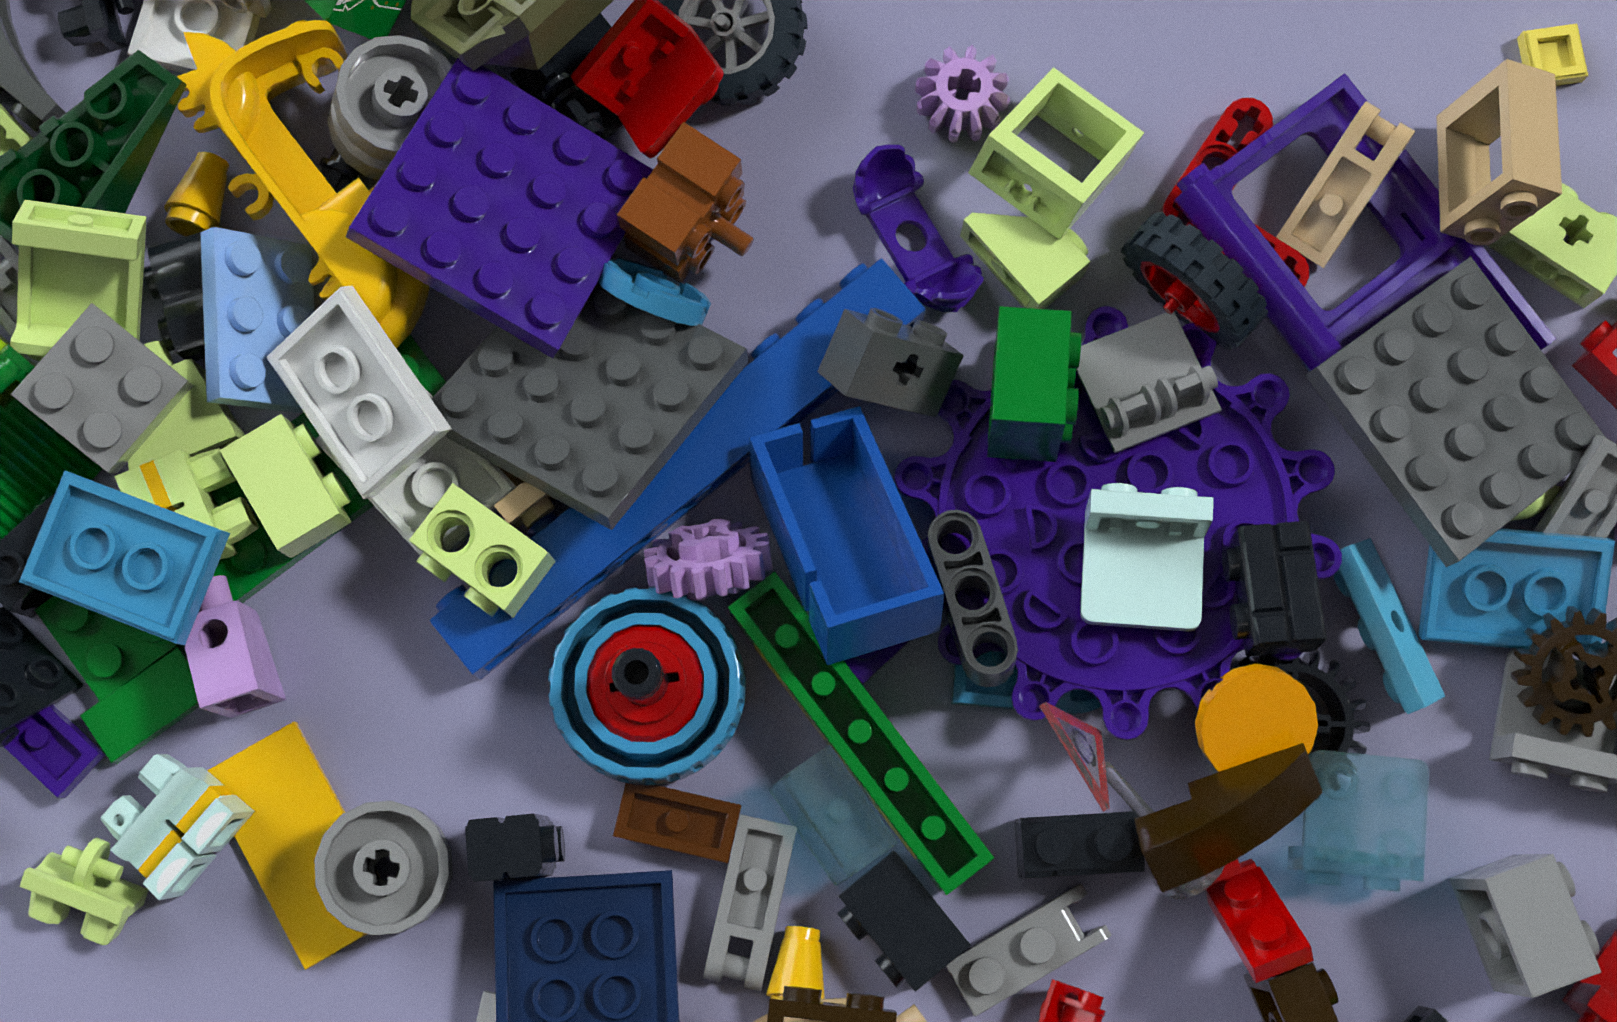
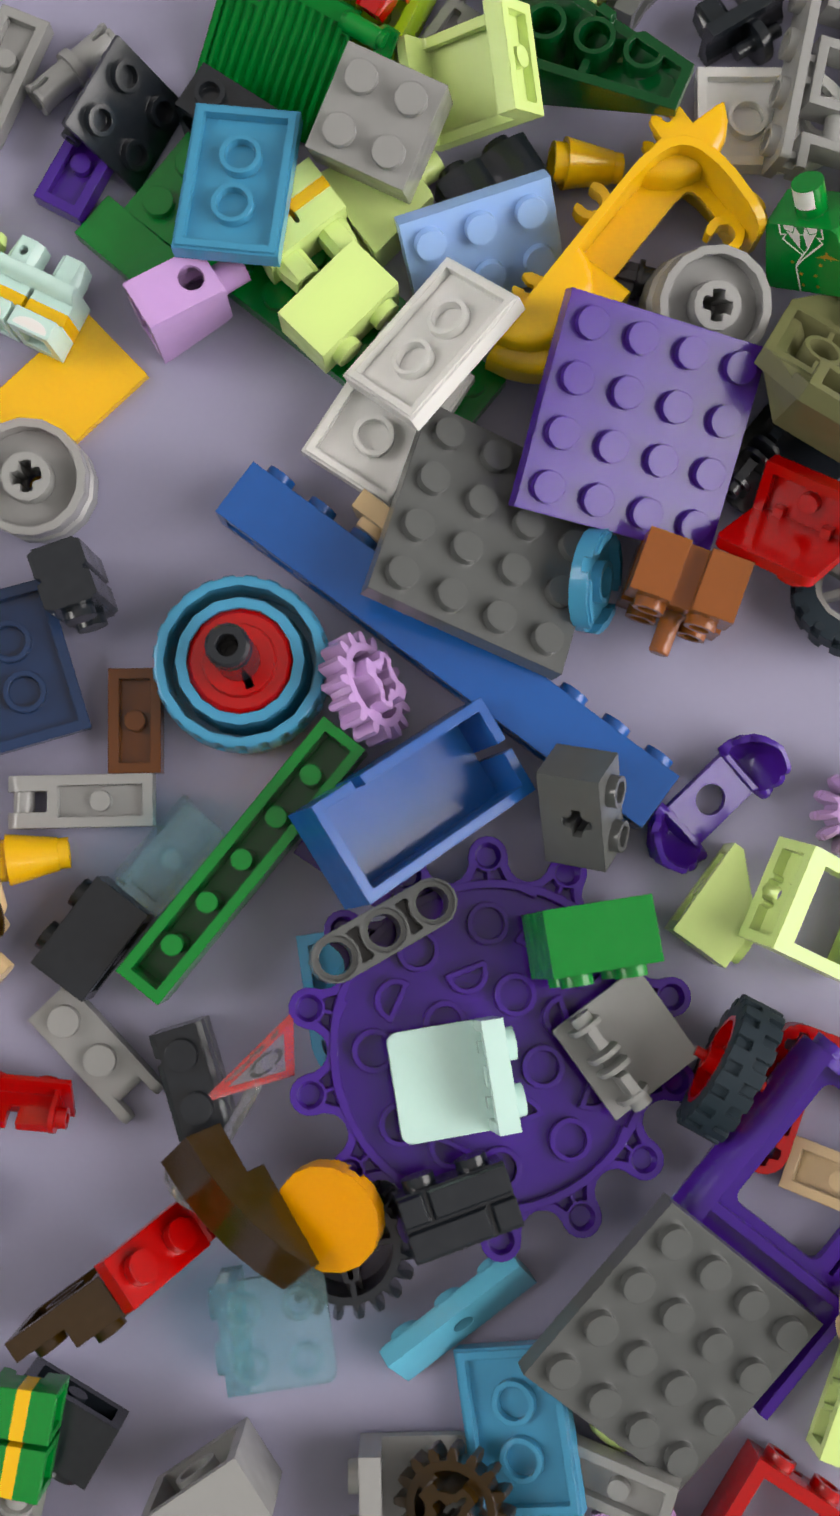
camera: 75 degrees right, 5 degrees up
(488, 543) = (330, 491): yellowish green brick -> none

